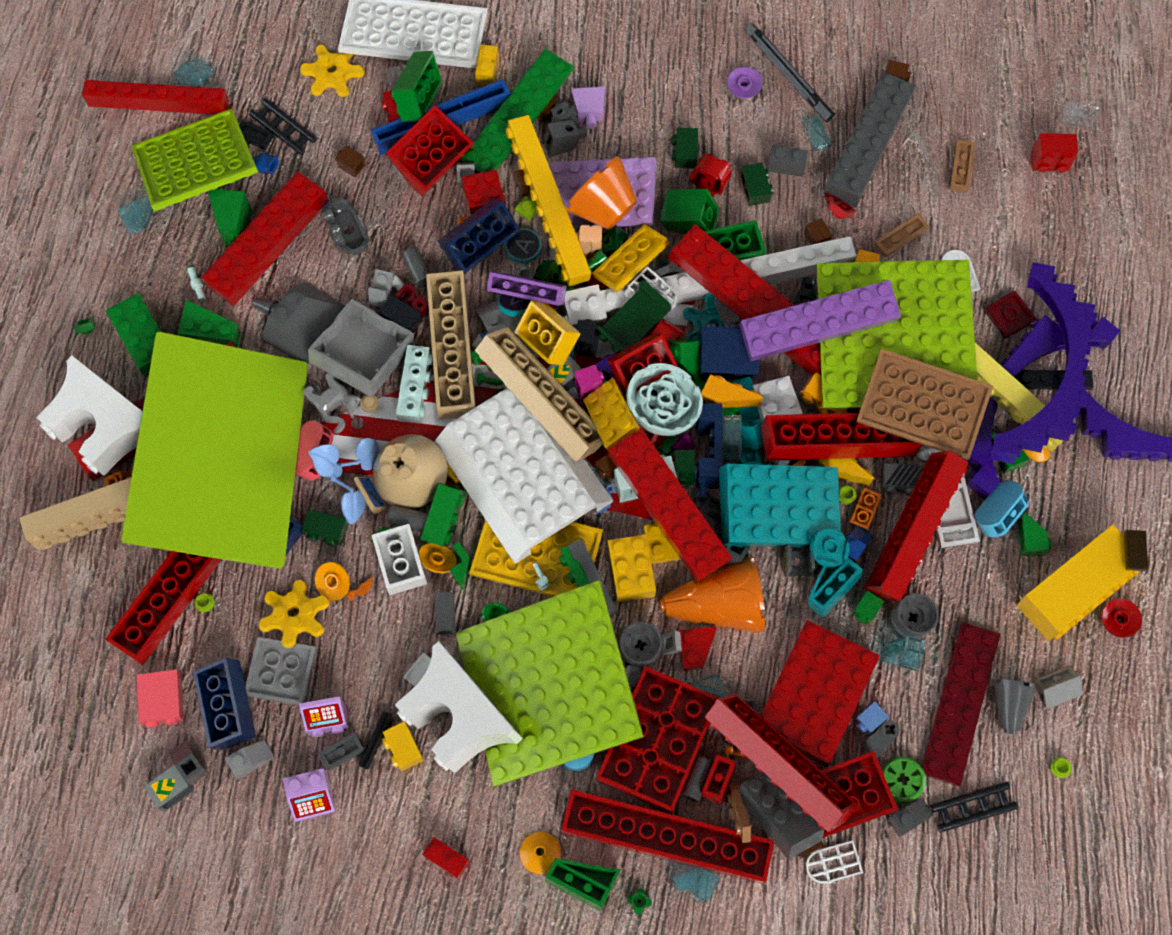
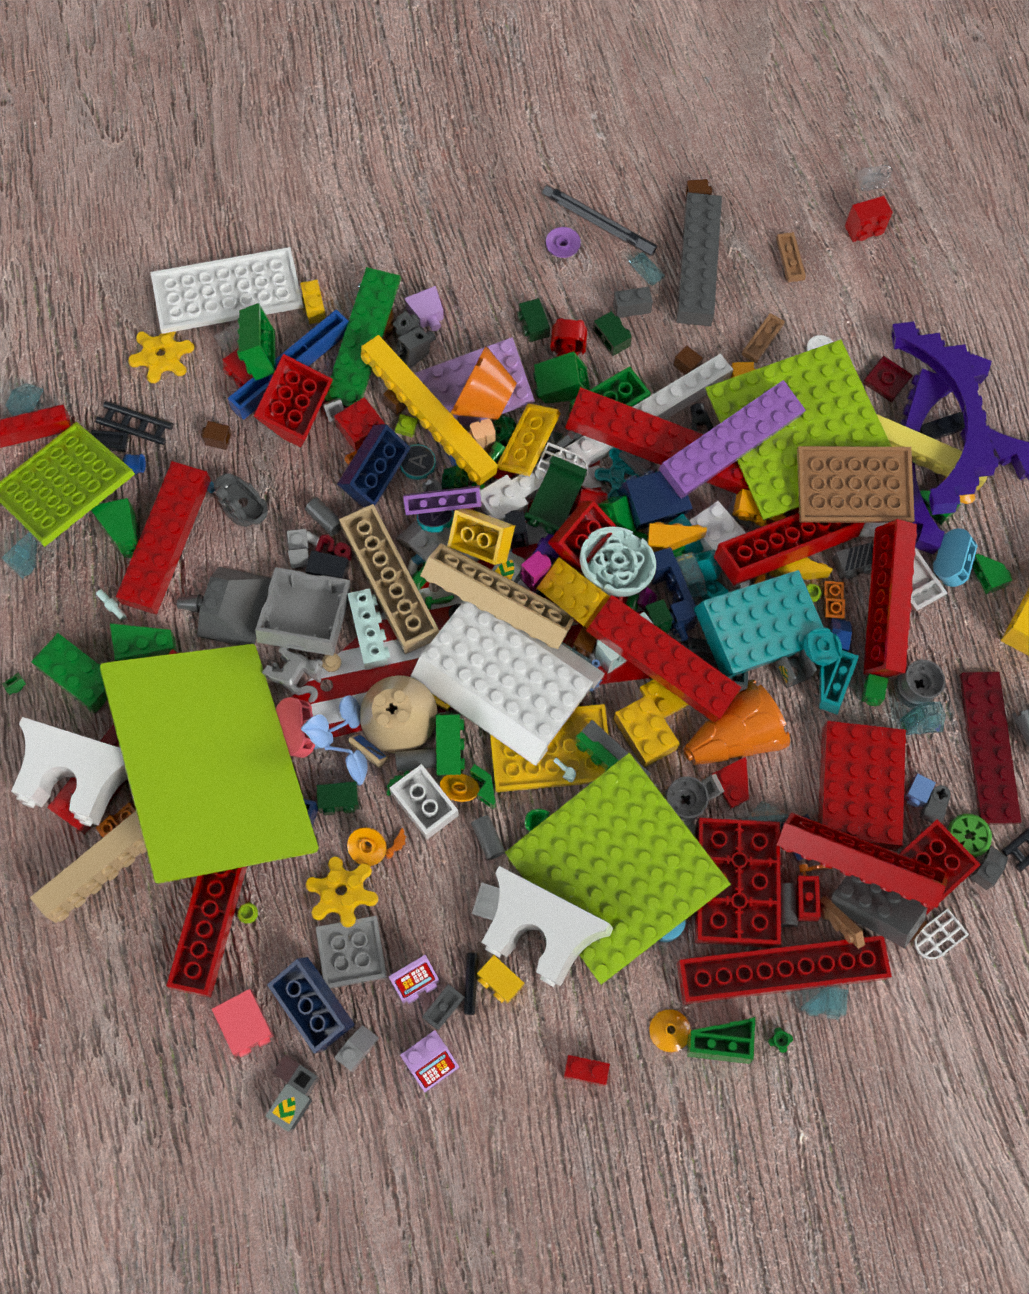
camera: 25 degrees left, 0 degrees up
(838, 207) = (701, 332): red wing -> none

